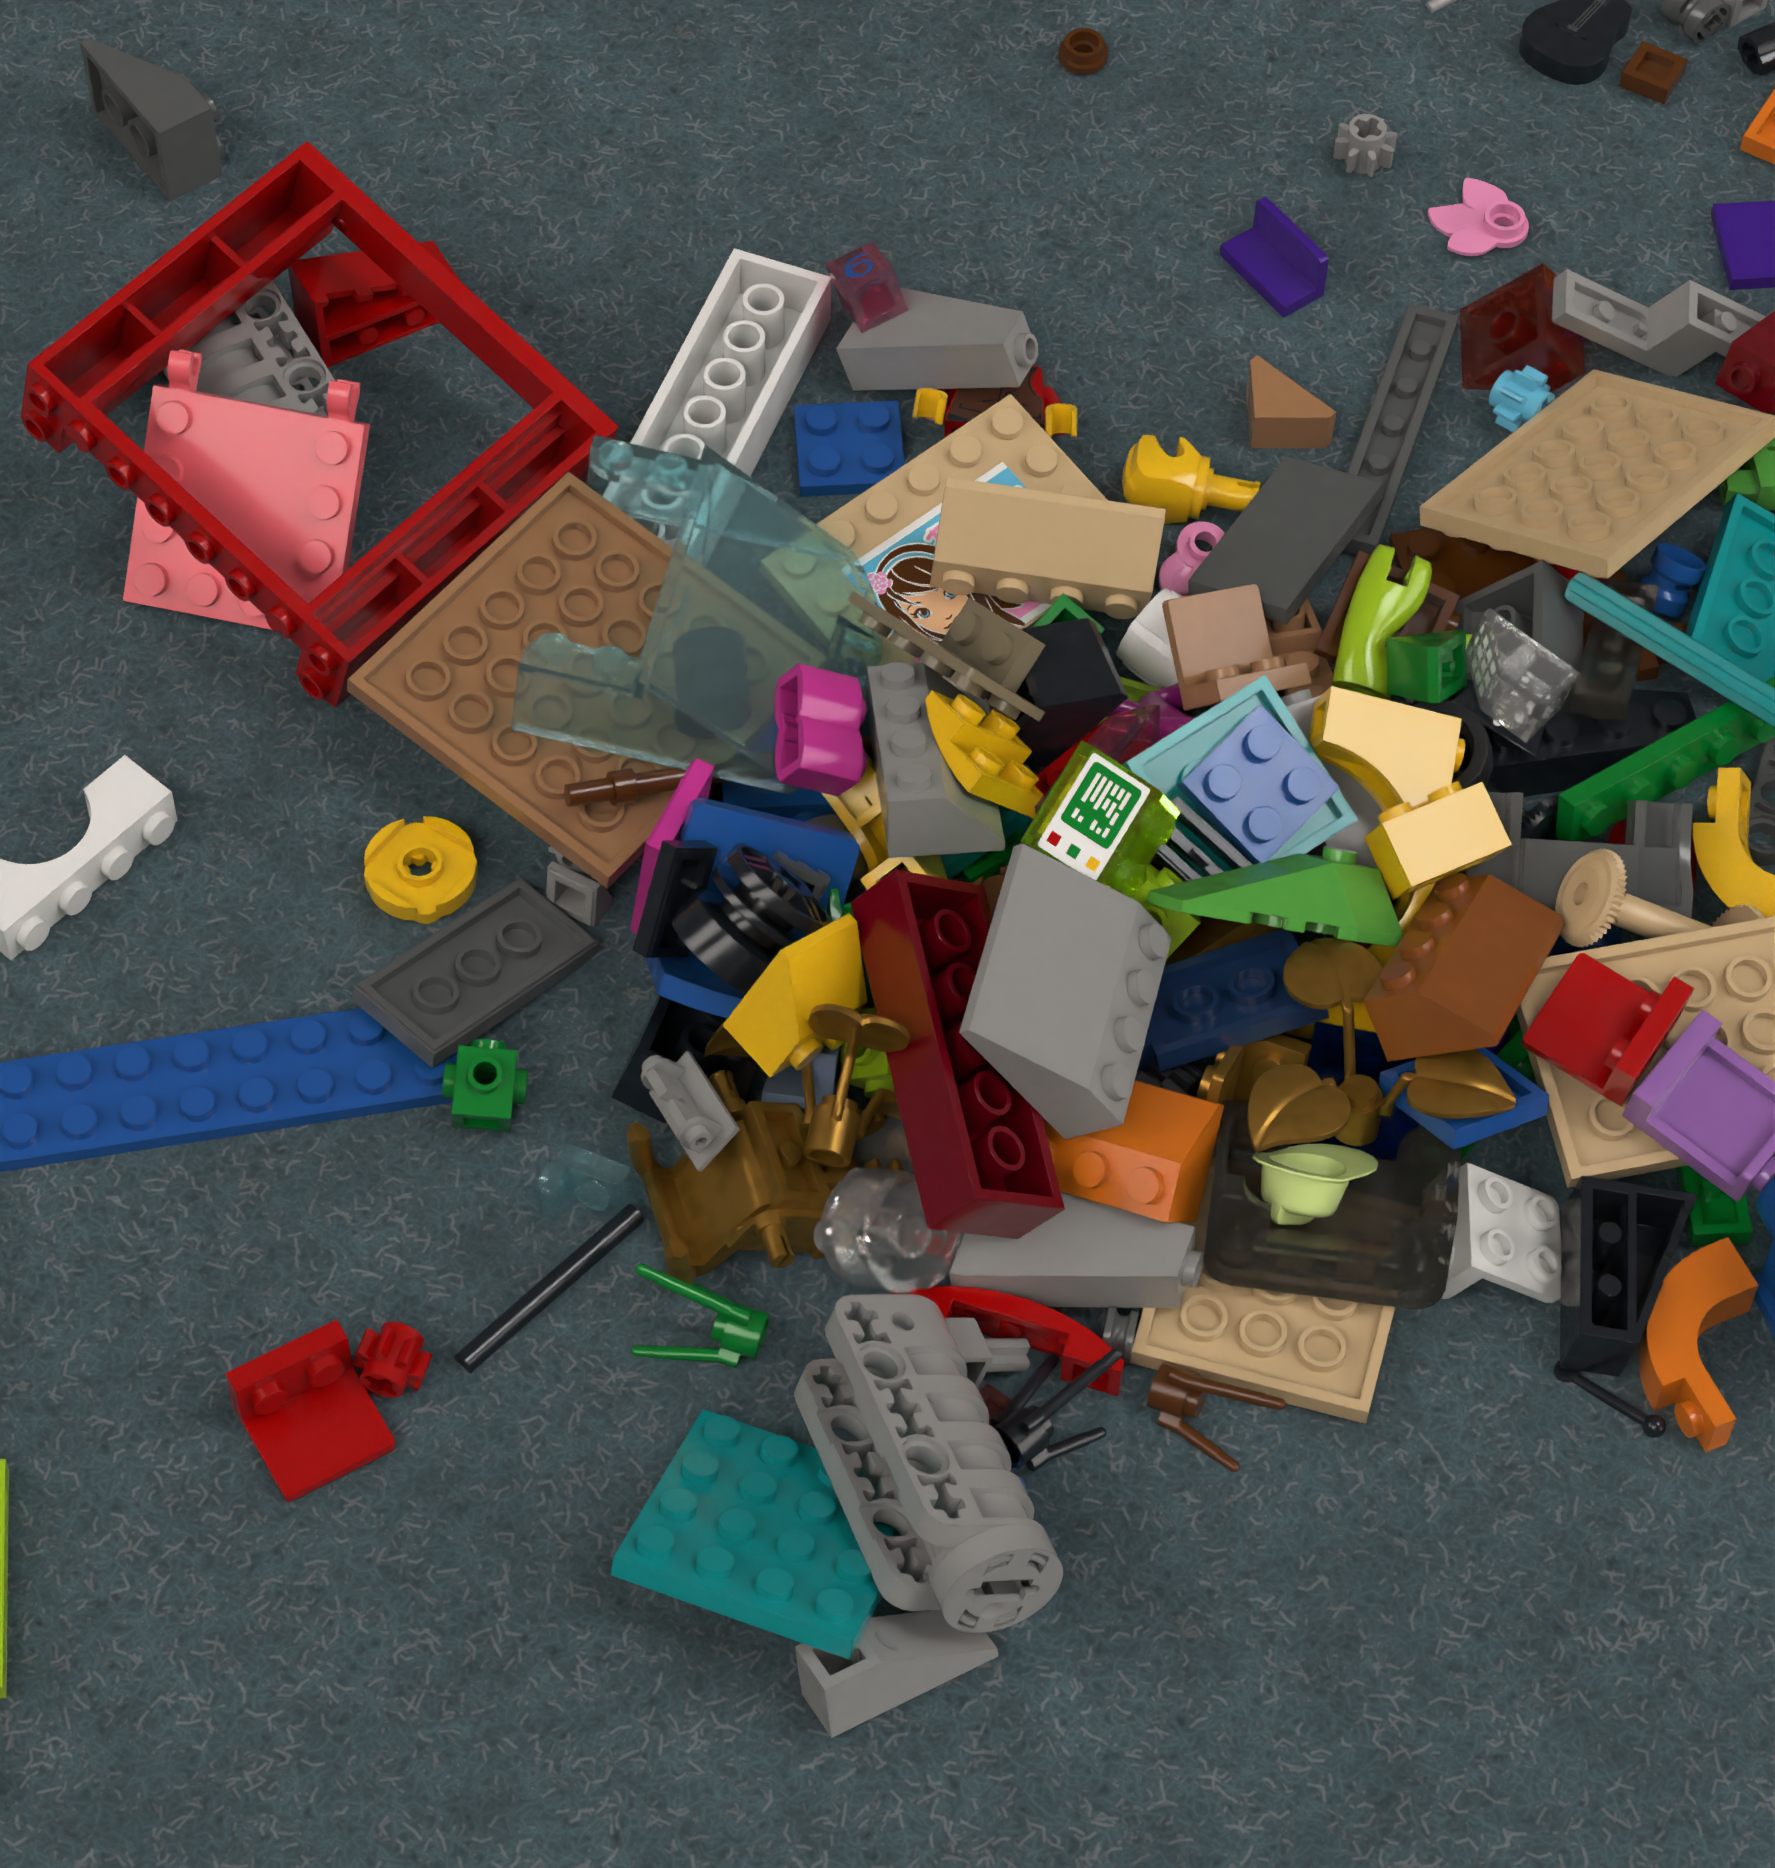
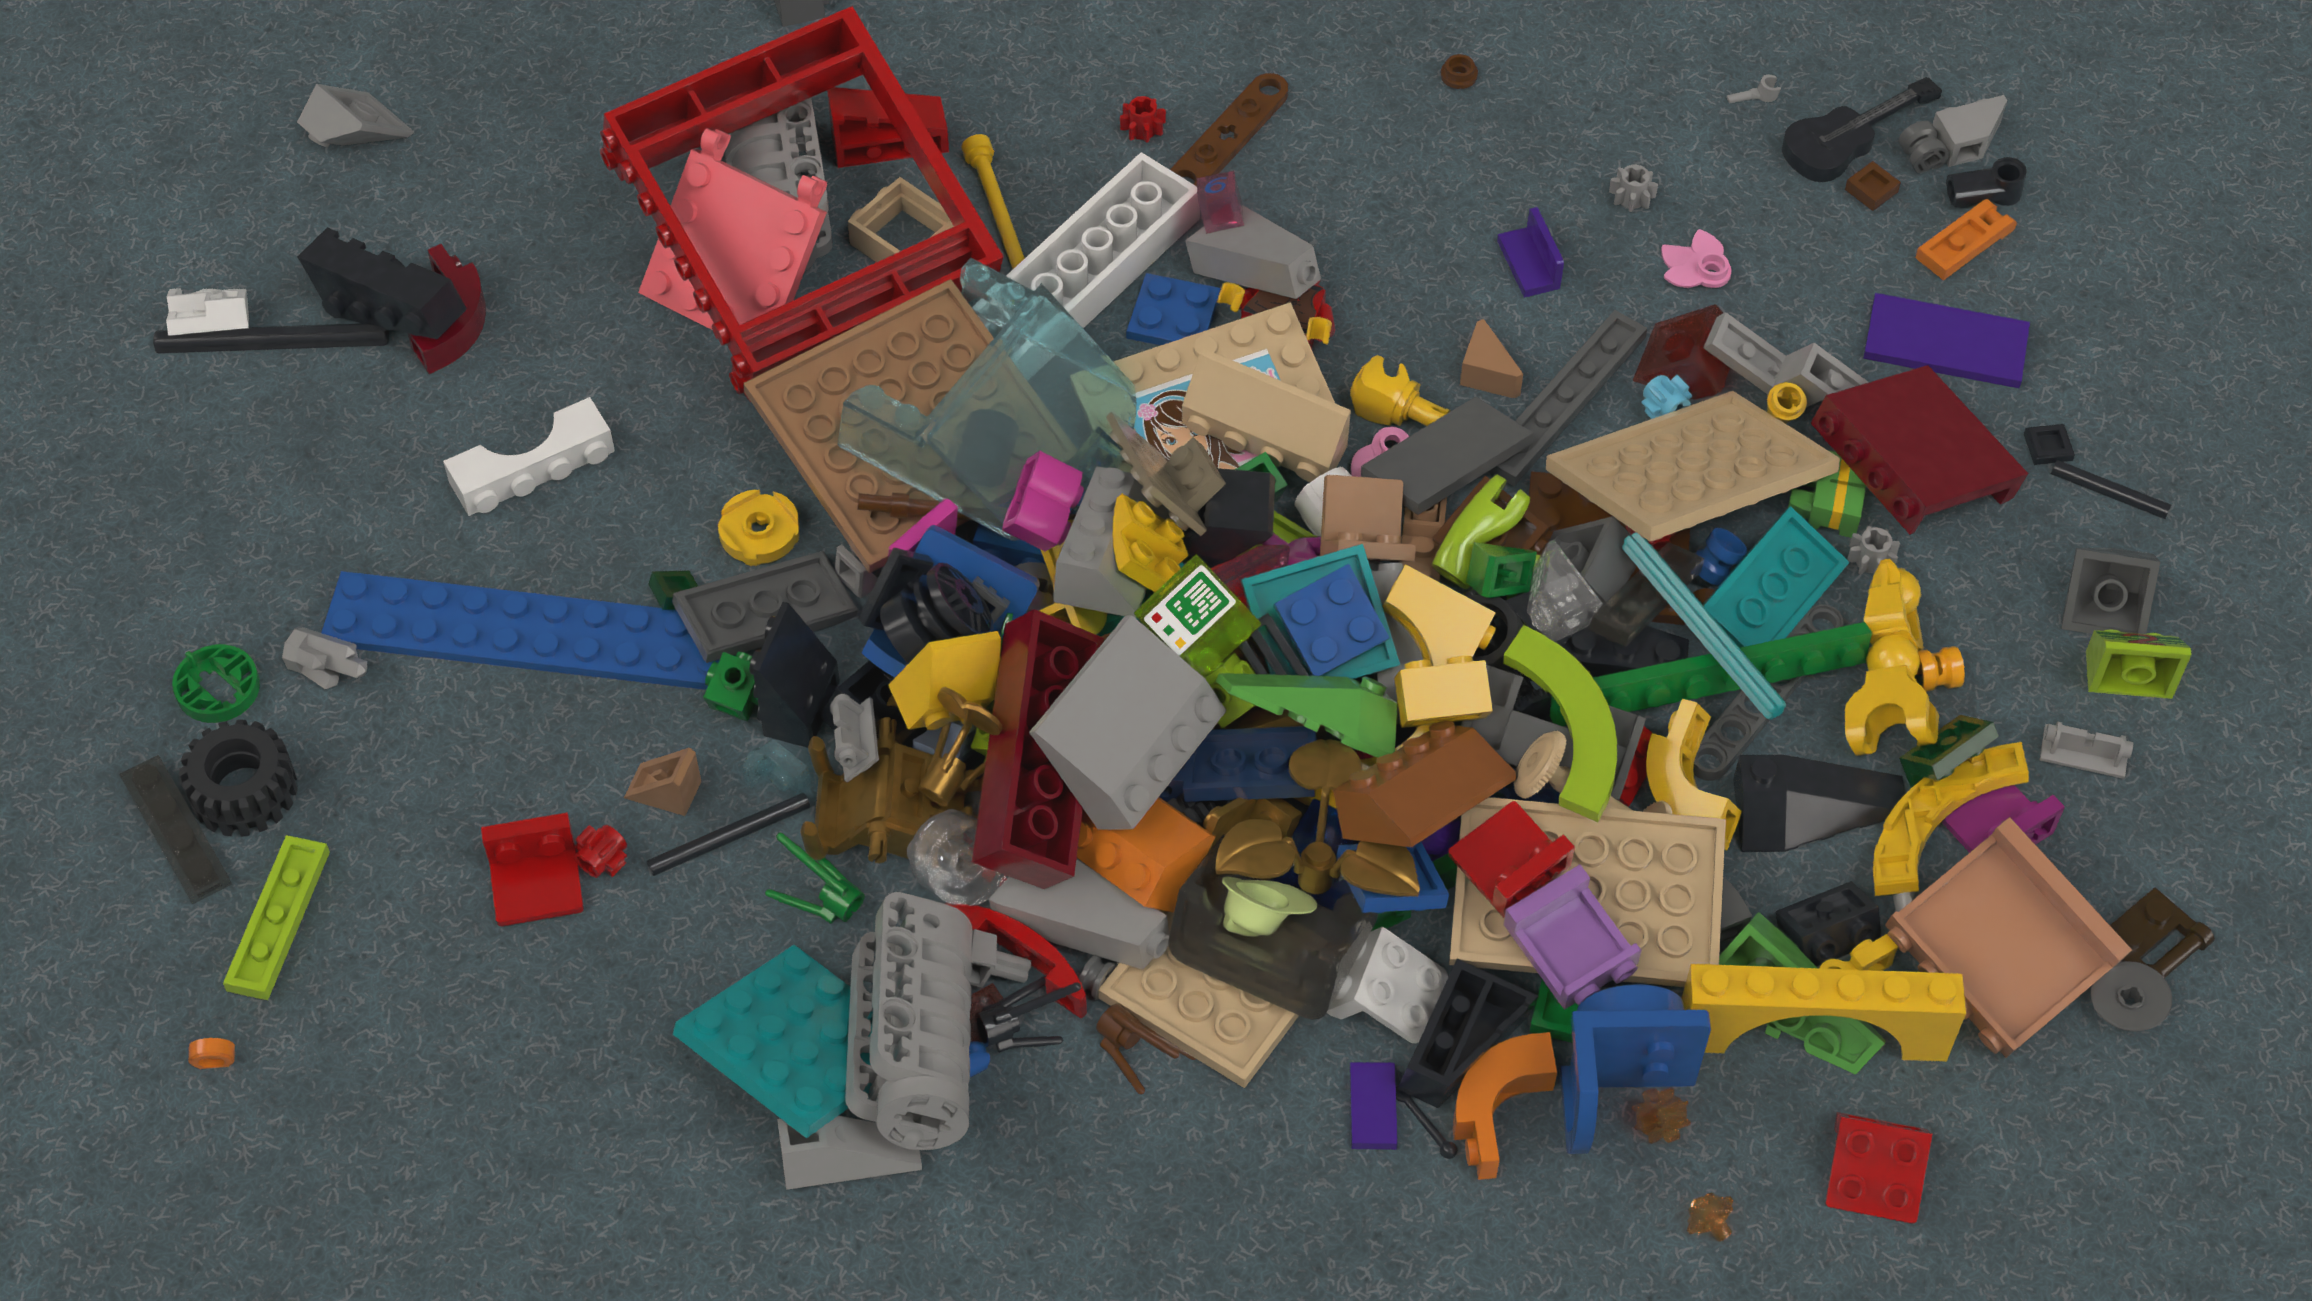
camera: 20 degrees right, 0 degrees up
(334, 980) = (668, 582): none -> dark green plate
(438, 1241) = (667, 782): none -> medium nougat slope
(453, 390) = (885, 207): none -> tan window
(511, 305) = (979, 153): none -> yellow piece
(566, 1059) = (792, 678): none -> black slope
(705, 207) = (1142, 118): none -> red gear
(832, 175) = (1244, 118): none -> reddish brown piece
(1538, 1397) = (1373, 1105): none -> dark purple tile
(1618, 816) = (1584, 712): none -> lime tile
(1674, 364) = (1786, 402): none -> yellow cone

